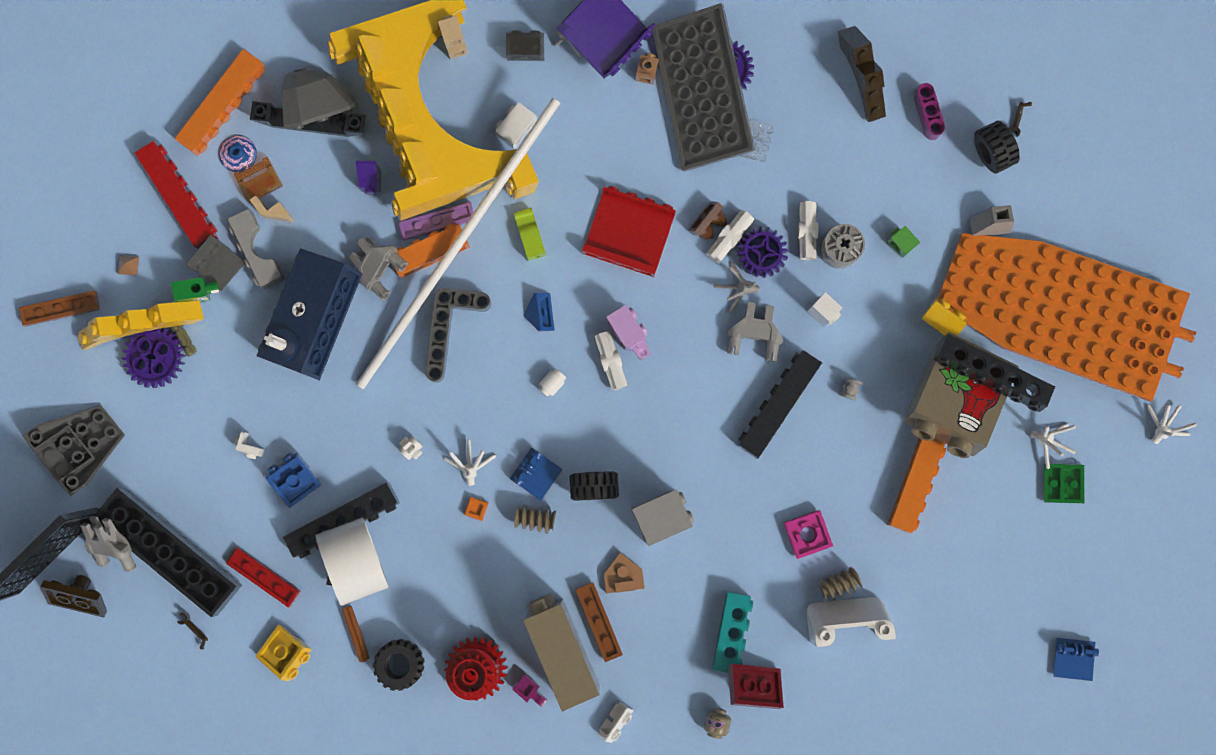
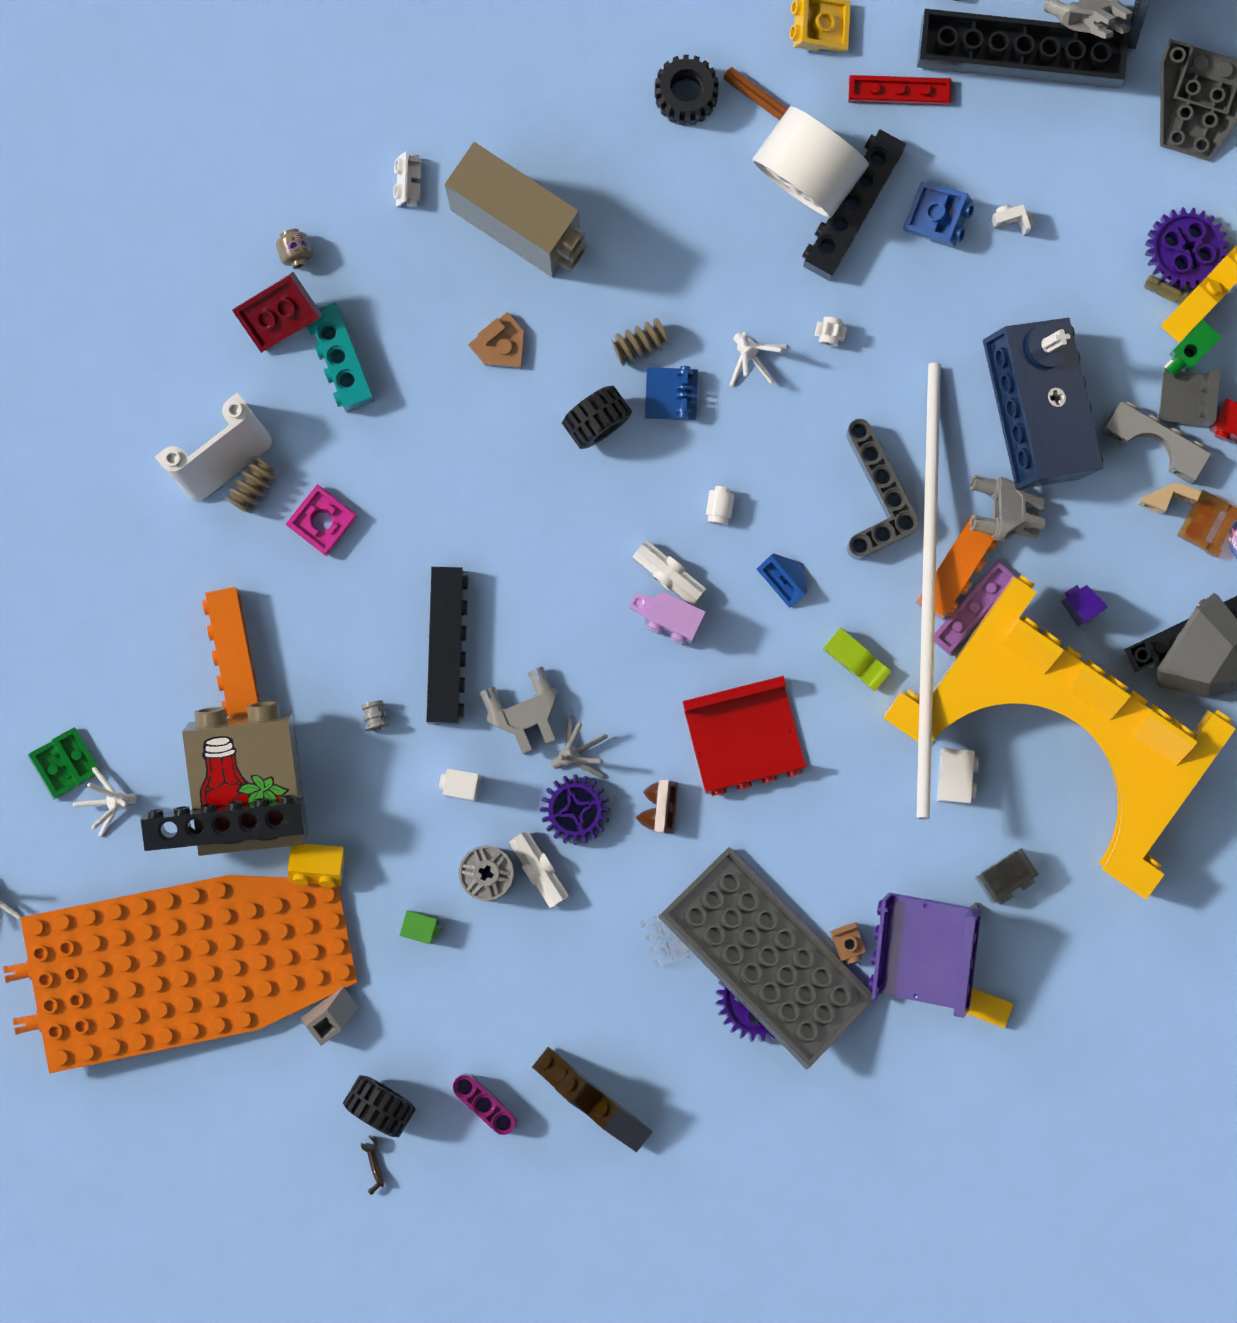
camera: 150 degrees right, 0 degrees up
(452, 36) = (1096, 827): tan arch -> none
(475, 669) = (598, 135): red piece -> none
(476, 508) = (713, 313): orange tile -> none
(527, 689) = (528, 153): magenta plate -> none
(599, 622) = (495, 276): dark orange plate -> none
(663, 517) = (498, 426): light grey brick -> none
(730, 236) = (624, 804): white piece -> none

